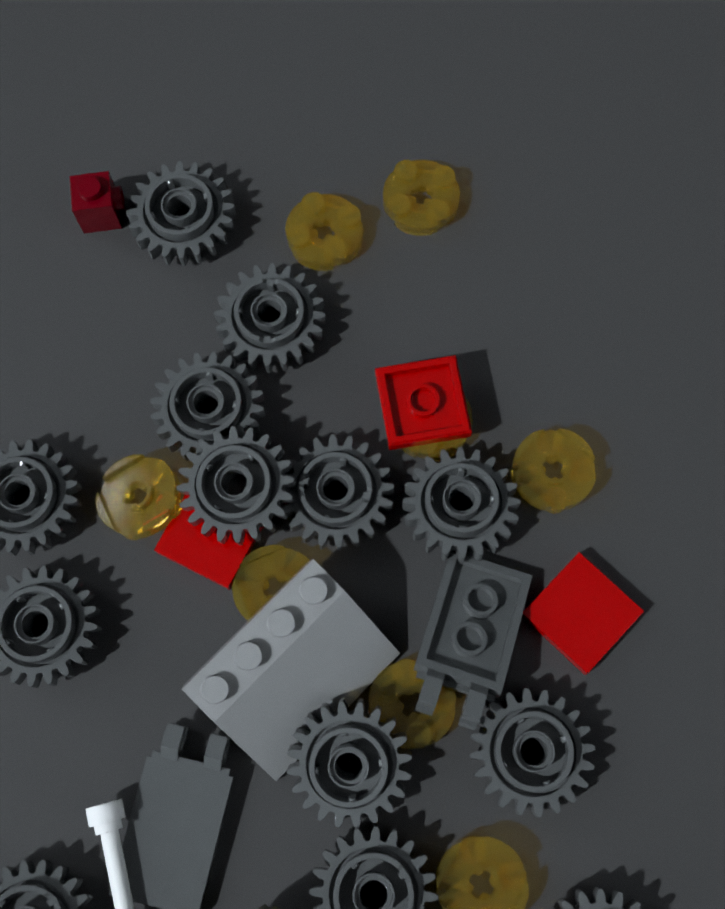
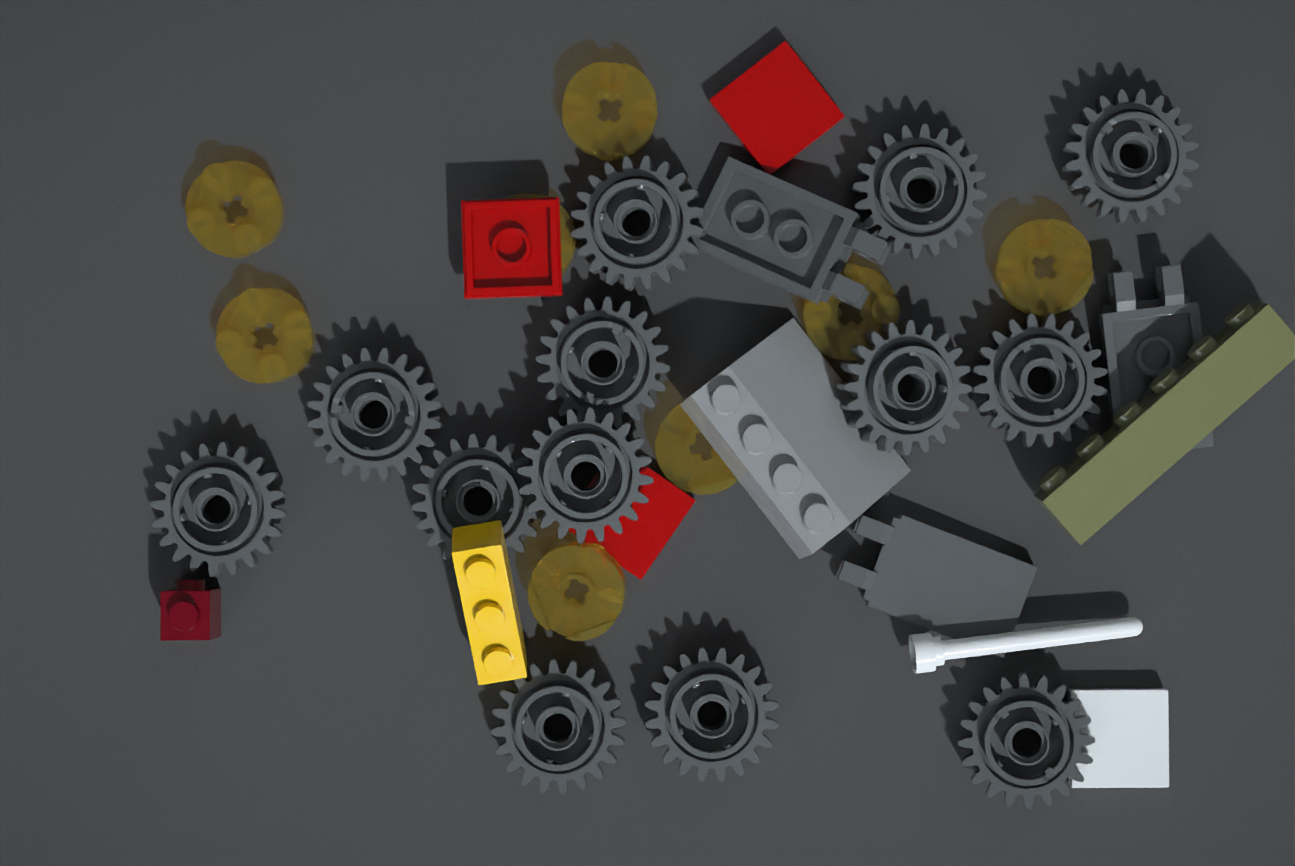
camera: 80 degrees left, 15 degrees up
(119, 420) = (489, 602): none -> yellow brick

